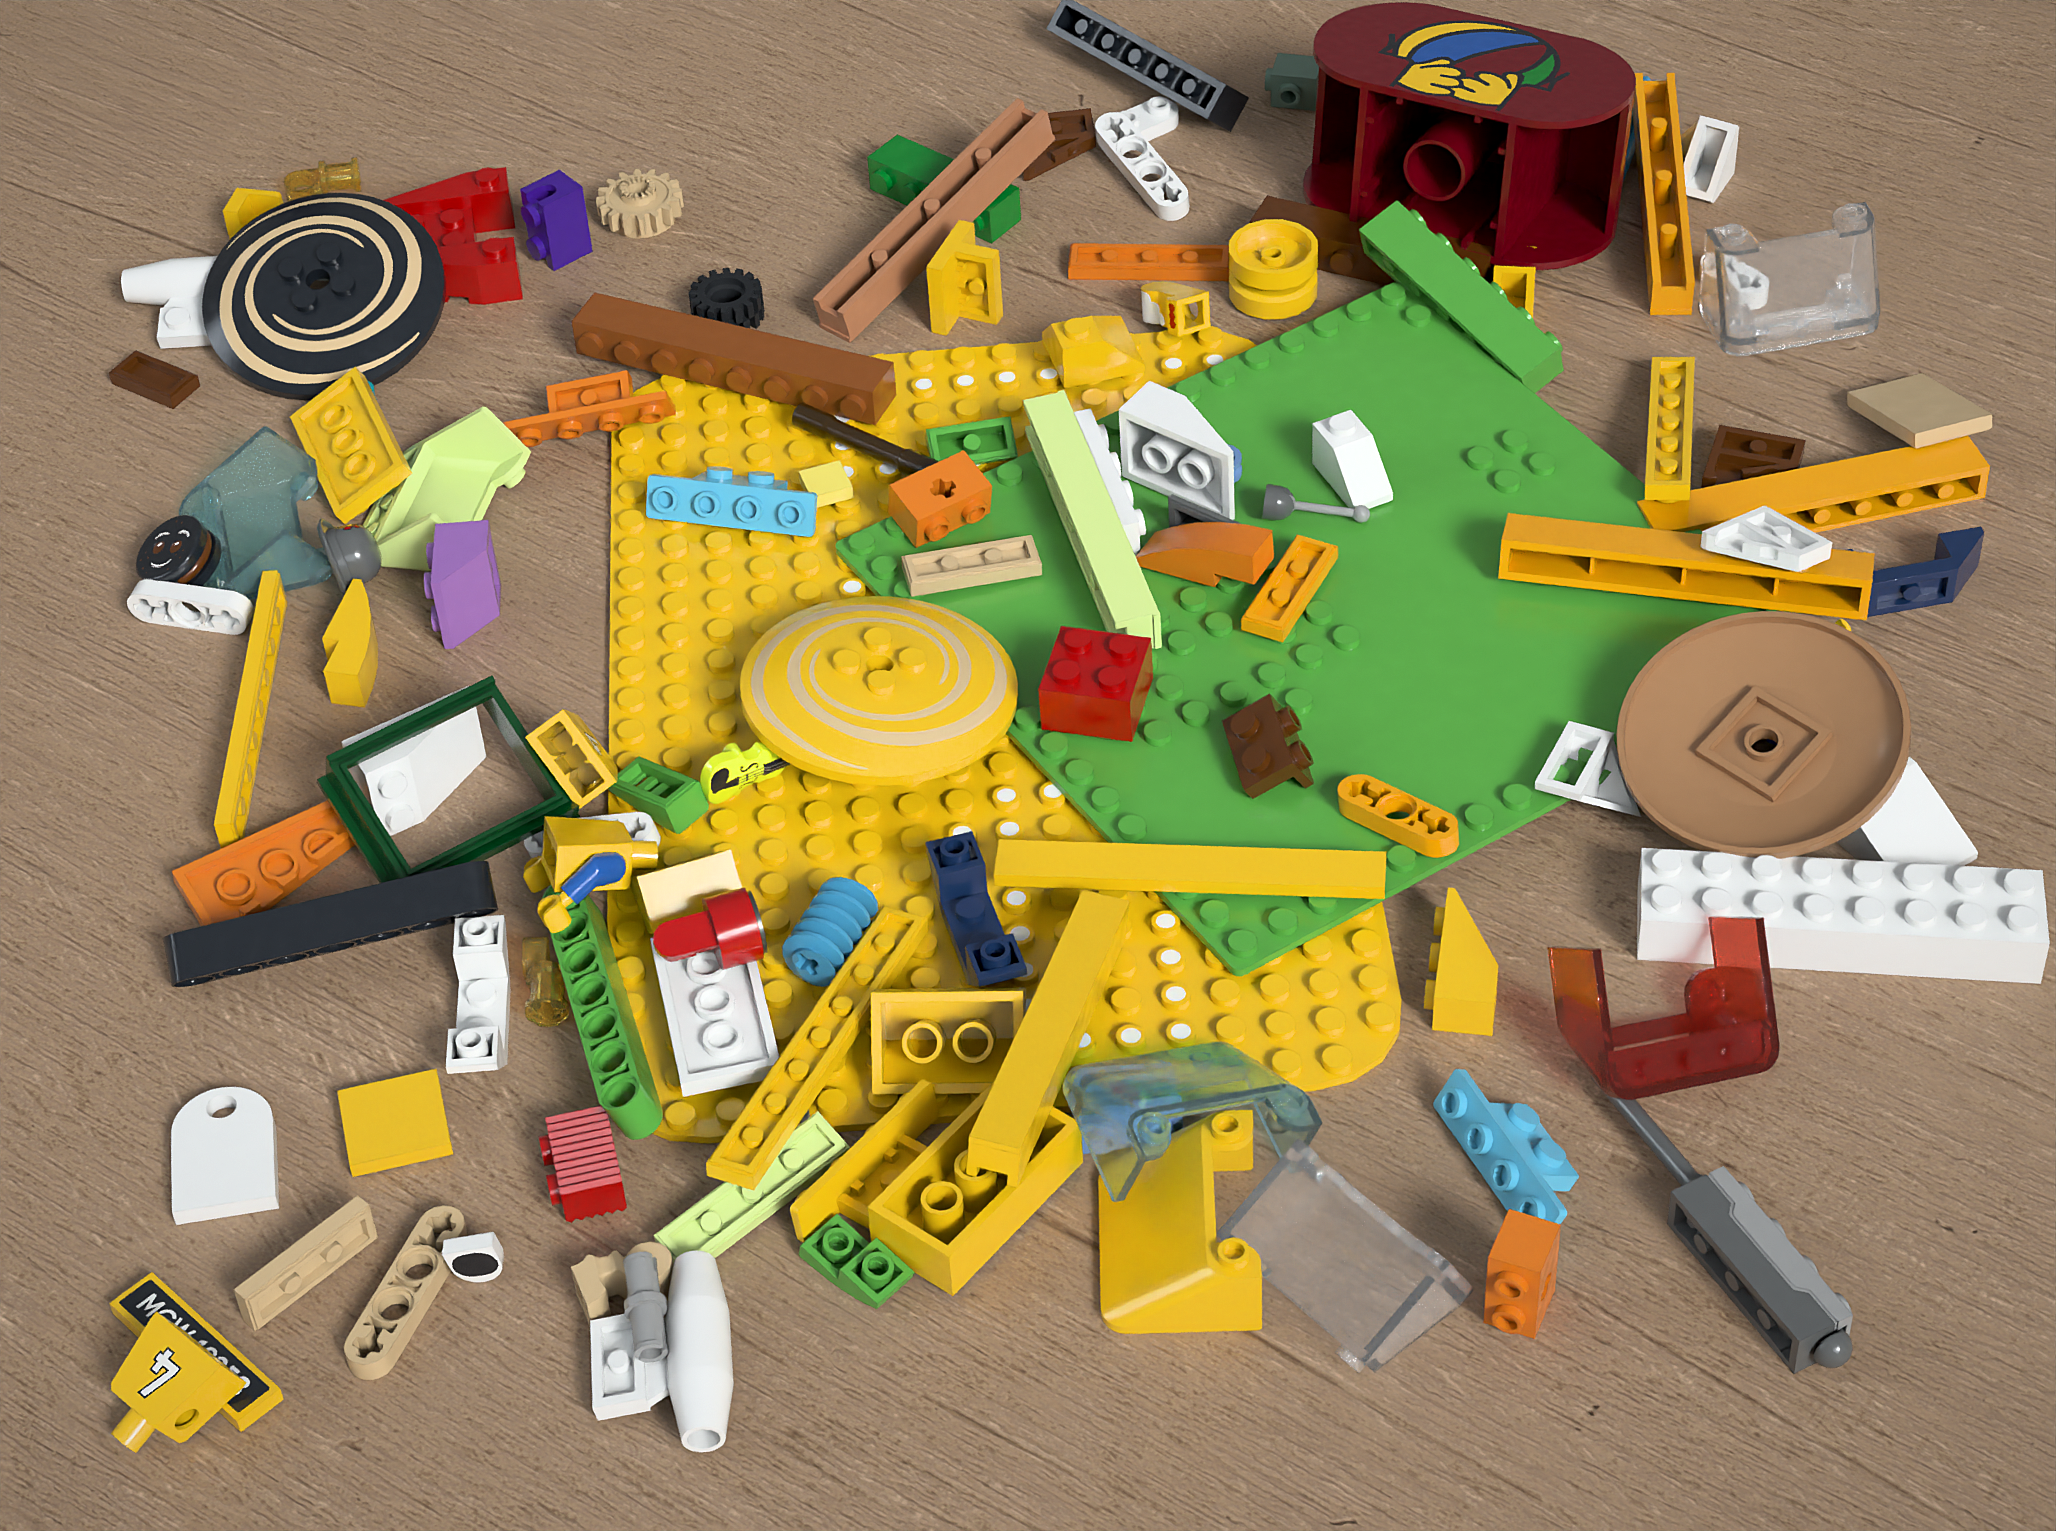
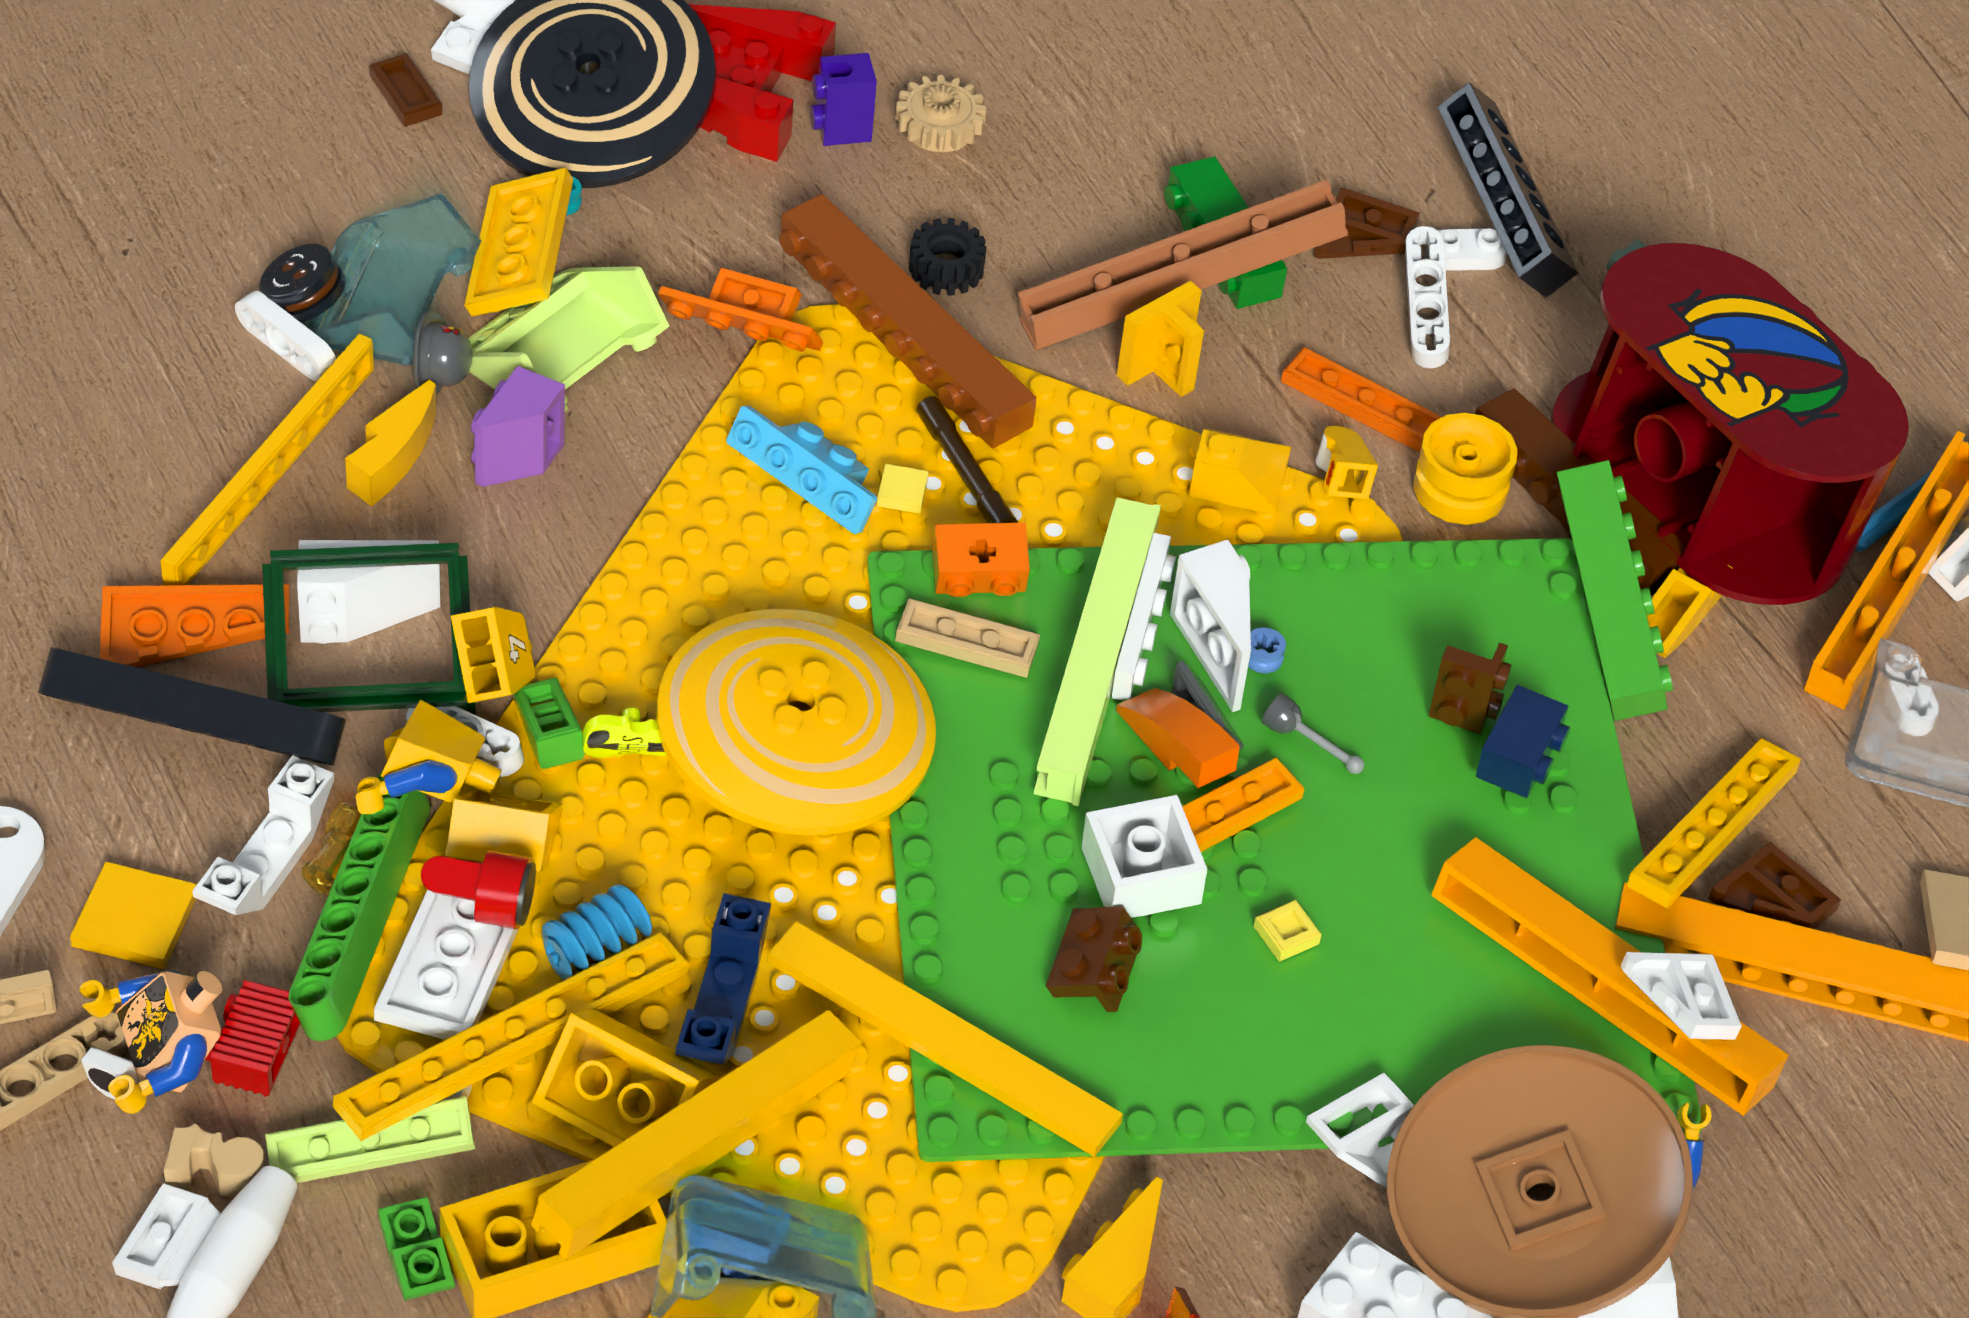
camera: 20 degrees right, 5 degrees up
(500, 1188) = (166, 1028): none -> torso
(645, 1307) = (205, 1197): light grey pin -> none
(868, 1165) = (482, 1165): yellow bracket -> none
(981, 440) = (1060, 513): bright green slope -> none
(1096, 683) = (984, 814): red brick -> none
(1255, 650) = (1144, 857): none -> white brick
(1350, 460) = (1378, 708): white slope -> none
(1404, 658) = (1287, 930): none -> light yellow tile
(1416, 410) = (1468, 688): none -> reddish brown bracket
(1424, 830) = (1162, 1102): light orange beam -> none
(1488, 430) = (1522, 742): none -> dark blue brick
(1929, 581) = (1845, 1106): dark blue slope -> none

